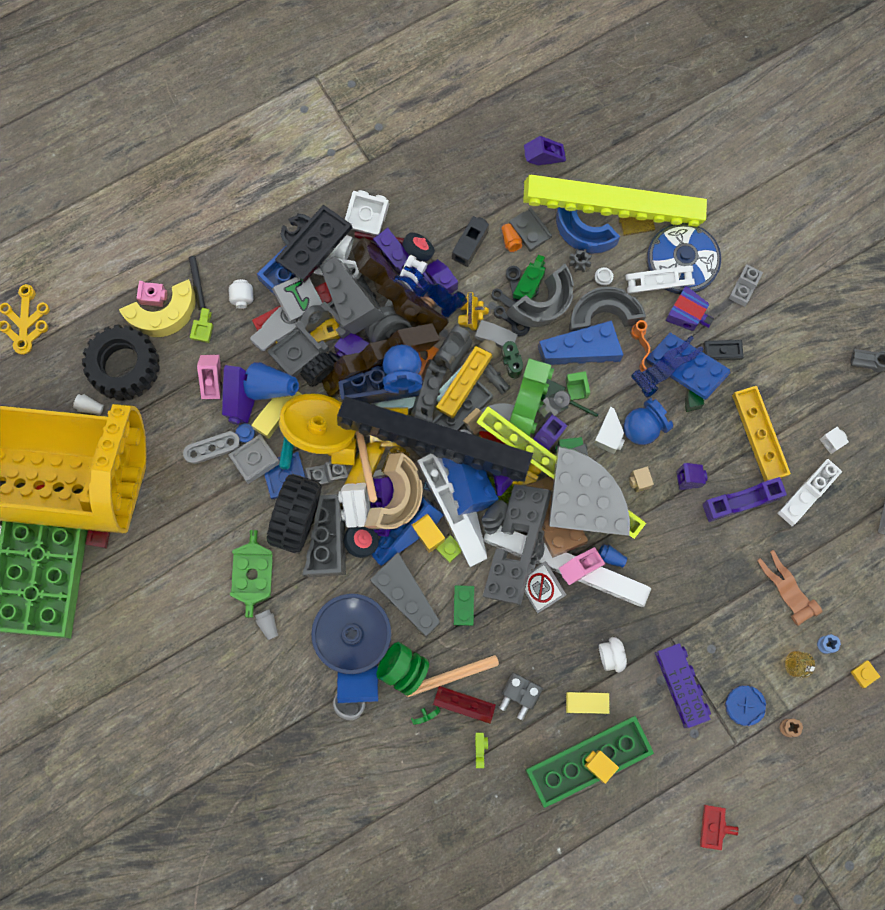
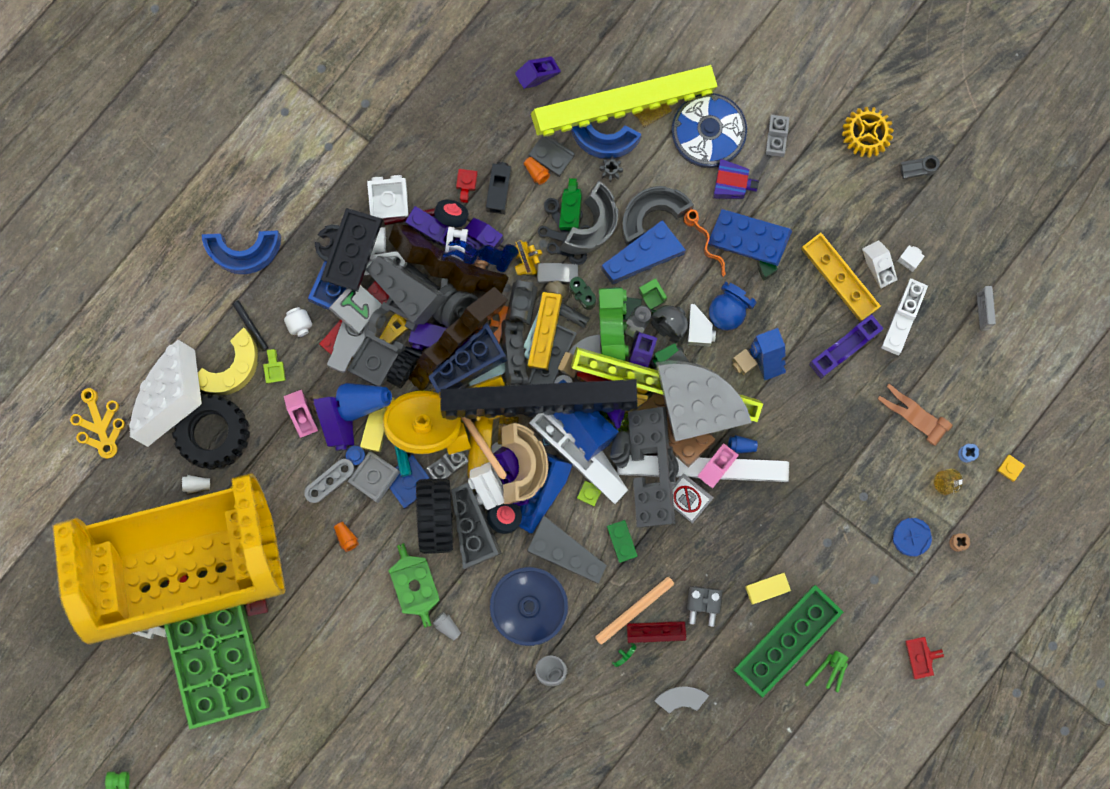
camera: 15 degrees left, 5 degrees up
(92, 313) = (166, 394): none -> white brick
(155, 299) = (218, 357): bright pink brick -> none
(206, 506) = (345, 536): none -> orange cone
(217, 223) = (244, 261): none -> blue brick
(358, 687) = (553, 652): blue tile -> none
(402, 369) = (484, 343): blue tile -> none
(403, 669) = (588, 621): green wheel -> none
(428, 533) = (564, 487): yellow slope -> none
(443, 226) = (466, 182): none -> red plate
(465, 777) = (681, 697): none -> light grey tile
(480, 744) = (685, 662): lime plate -> none
(584, 416) = (671, 322): none -> dark grey cylinder
(600, 766) = (799, 641): yellow brick -> none
(603, 276) = (639, 176): white plate -> none
(613, 655) = (775, 536): white piece -> none
(630, 801) = (838, 663): none -> bright green plant
(659, 279) = (694, 161): white plate -> none
(663, 369) = (728, 249): clear blue flag -> none
(667, 476) = (768, 351): none -> blue wedge
(682, 686) = (848, 540): dark purple brick -> none
(691, 476) = (793, 341): dark purple slope -> none
(724, 349) = (778, 208): black plate -> none
(803, 434) = (880, 263): none -> white slope
(834, 301) = (863, 126): none -> yellow gear

